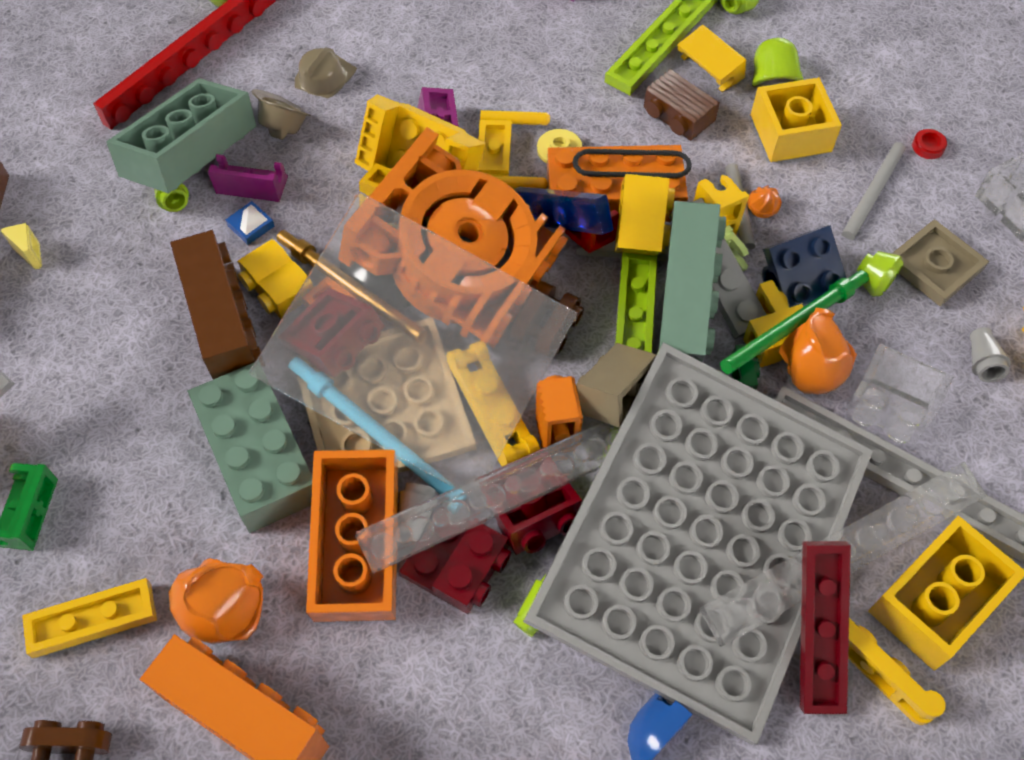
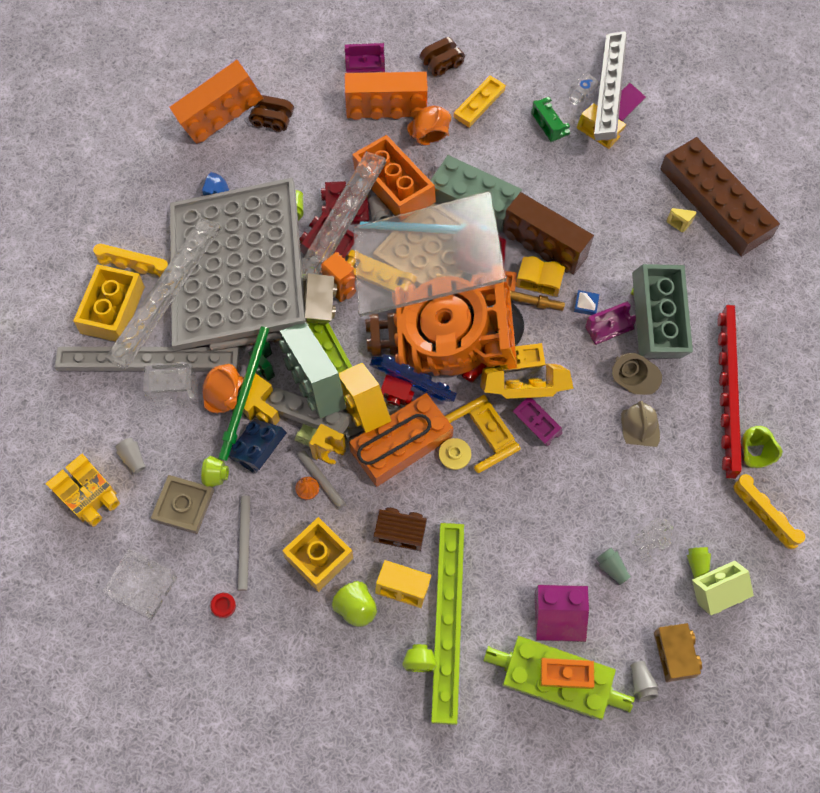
camera: 145 degrees right, 5 degrees up
(825, 627) = (160, 248): dark red plate -> none

